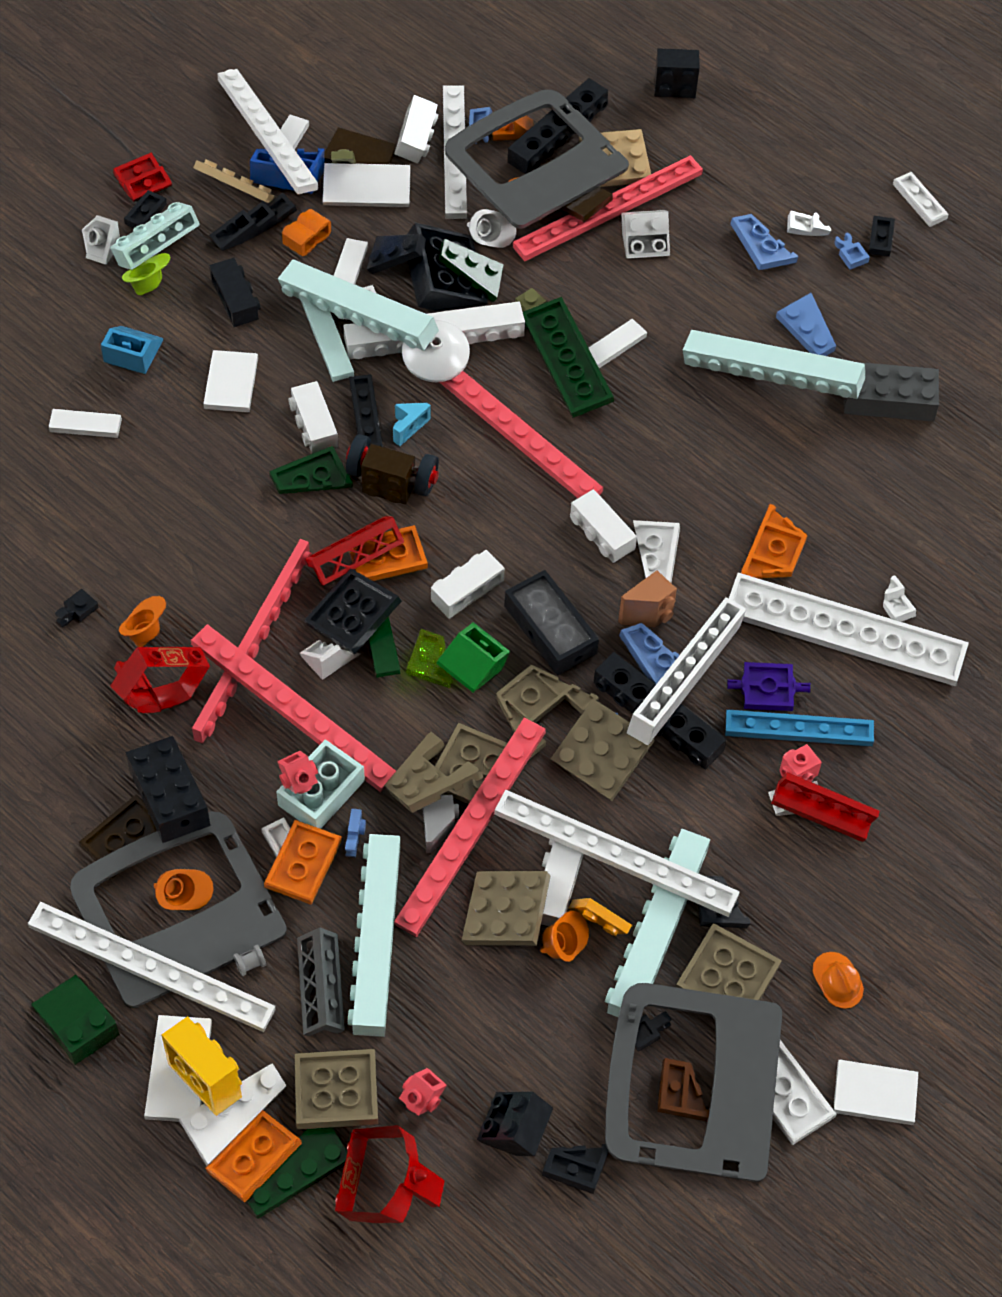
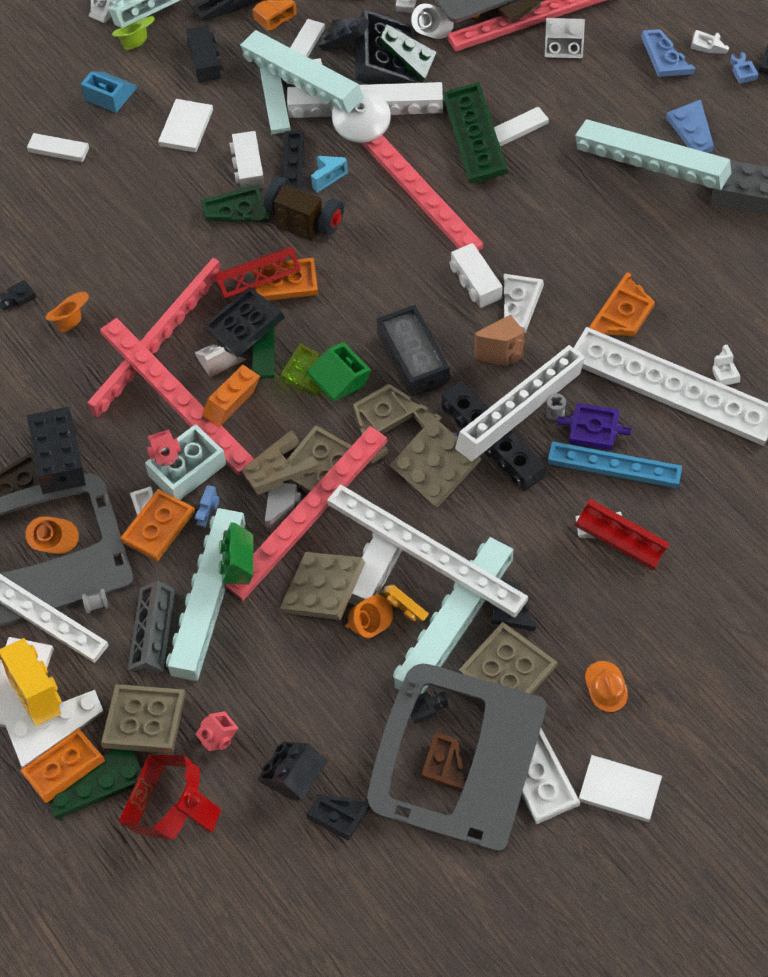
camera: 15 degrees right, 0 degrees up
(136, 689) = (52, 366): red piece -> none
(357, 700) = (230, 395): none -> orange brick
(406, 888) = (236, 555): none -> green slope
(467, 583) = (348, 311): white brick -> none
(530, 299) = (452, 82): olive plate -> none
(648, 651) = (492, 381): medium blue wing -> none
(720, 668) = (556, 405): none -> light grey bush
(801, 763) = (609, 494): coral brick -> none

